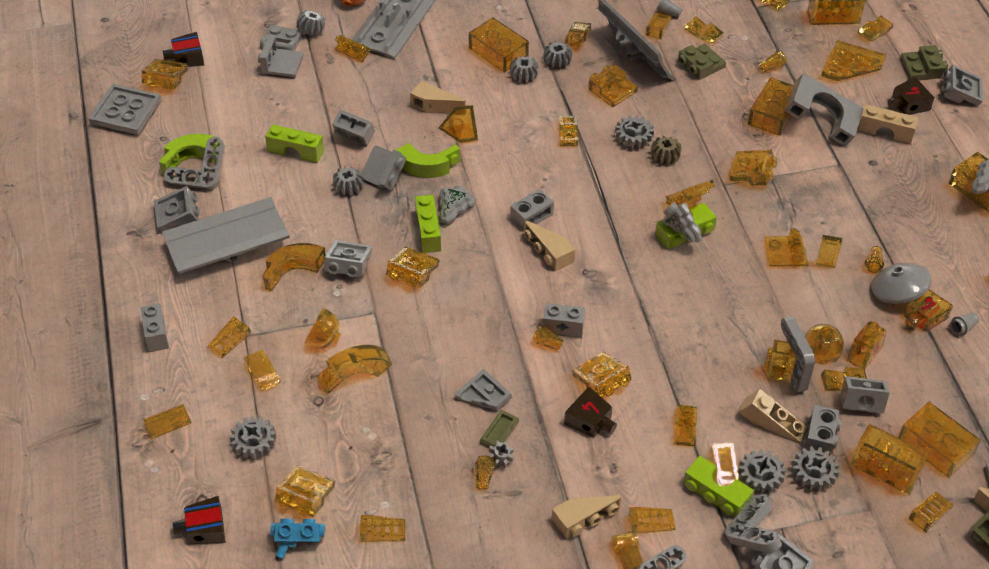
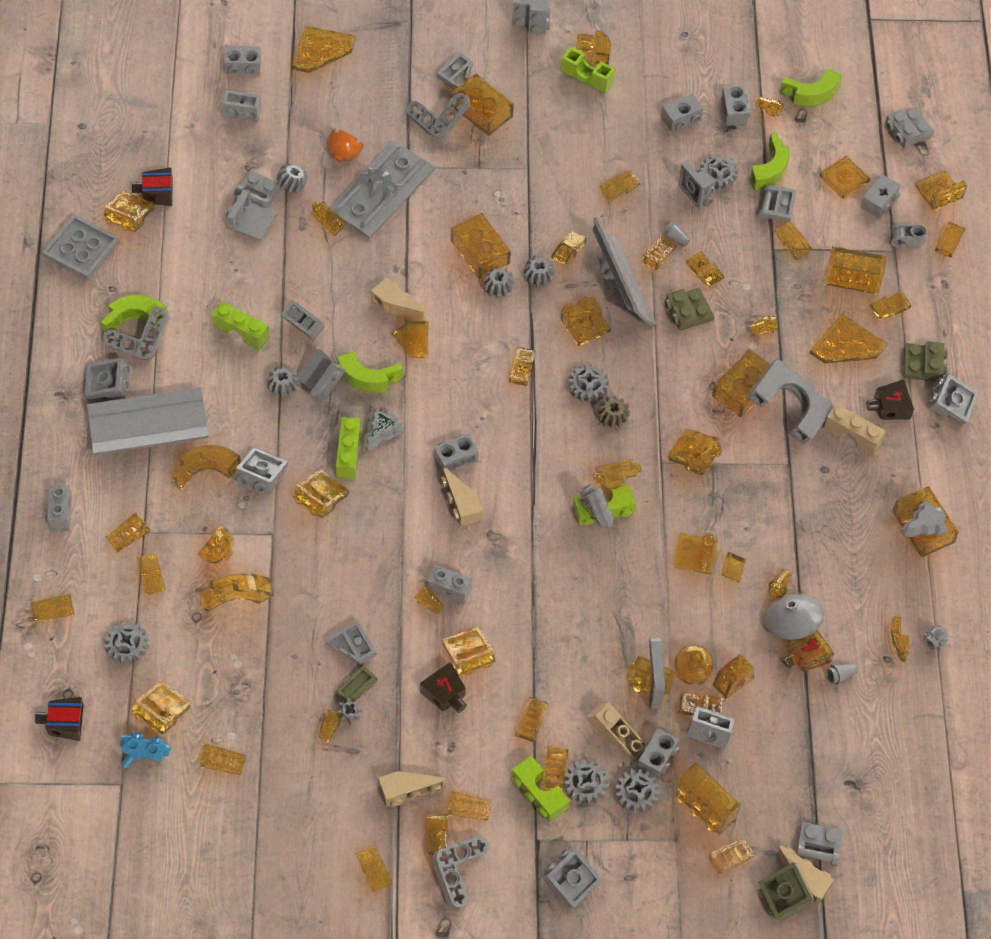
camera: 10 degrees right, 10 degrees up
(740, 531) = (573, 816): light grey beam -> none
(942, 437) = (765, 788): clear yellow brick -> none

